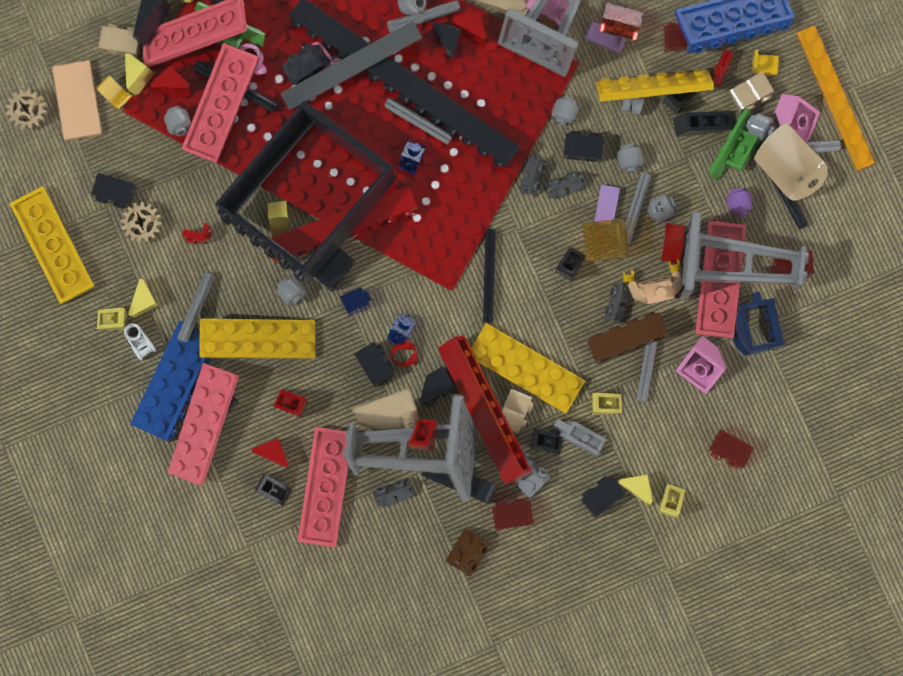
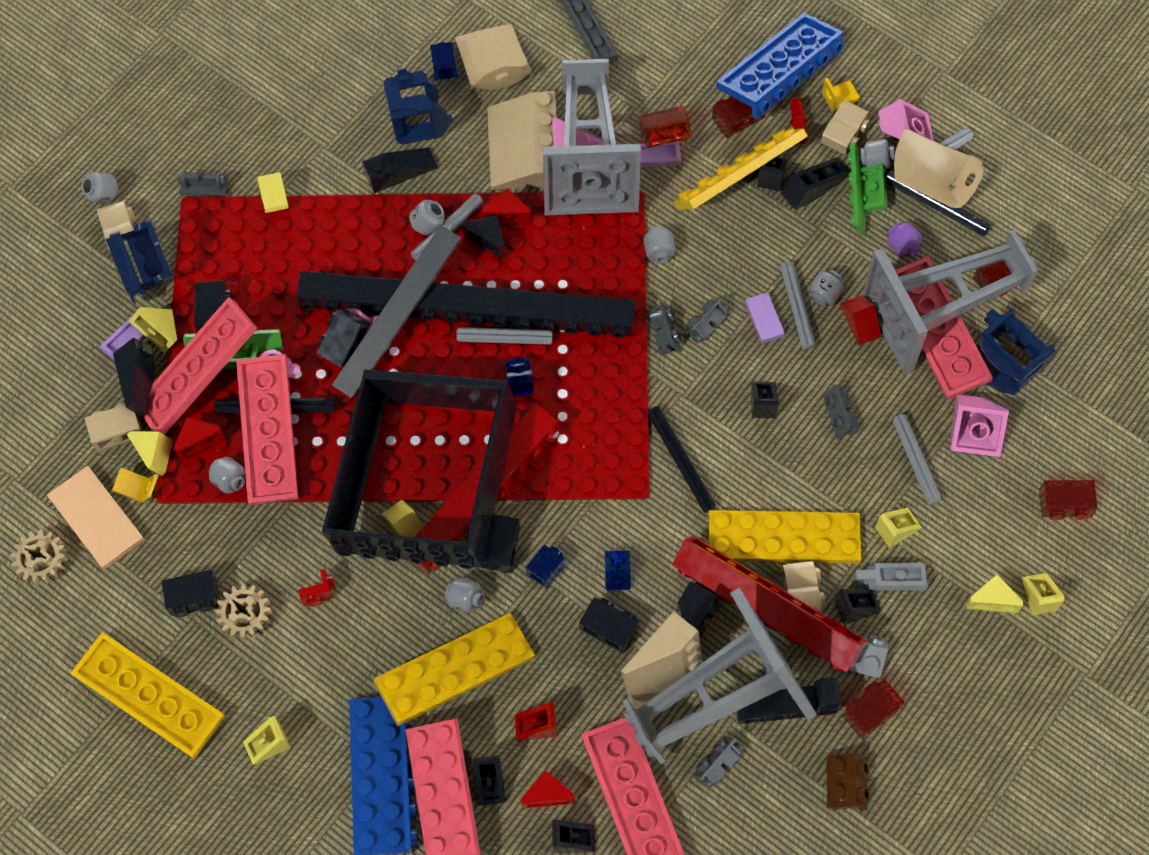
camera: 30 degrees left, 15 degrees down
(139, 342) = (316, 752): white piece -> none
(142, 300) = (292, 700): light yellow slope -> none
(195, 307) = (361, 673): light grey axle -> none
(240, 424) = (489, 780): none -> black slope
(405, 346) = (633, 583): red piece -> none
(424, 435) = (721, 663): red slope -> none
(583, 147) = (702, 271): black brick -> none
(602, 496) = (961, 629): black brick -> none
(605, 240) = (788, 349): clear yellow brick -> none
(627, 338) = (878, 439): reddish brown brick -> none
(630, 158) = (759, 255): light grey head -> none
(633, 105) = (728, 201): light grey wheel -> none
(655, 289) = (875, 372): light nougat torso -> none
(835, 98) = (935, 92): light orange plate -> none

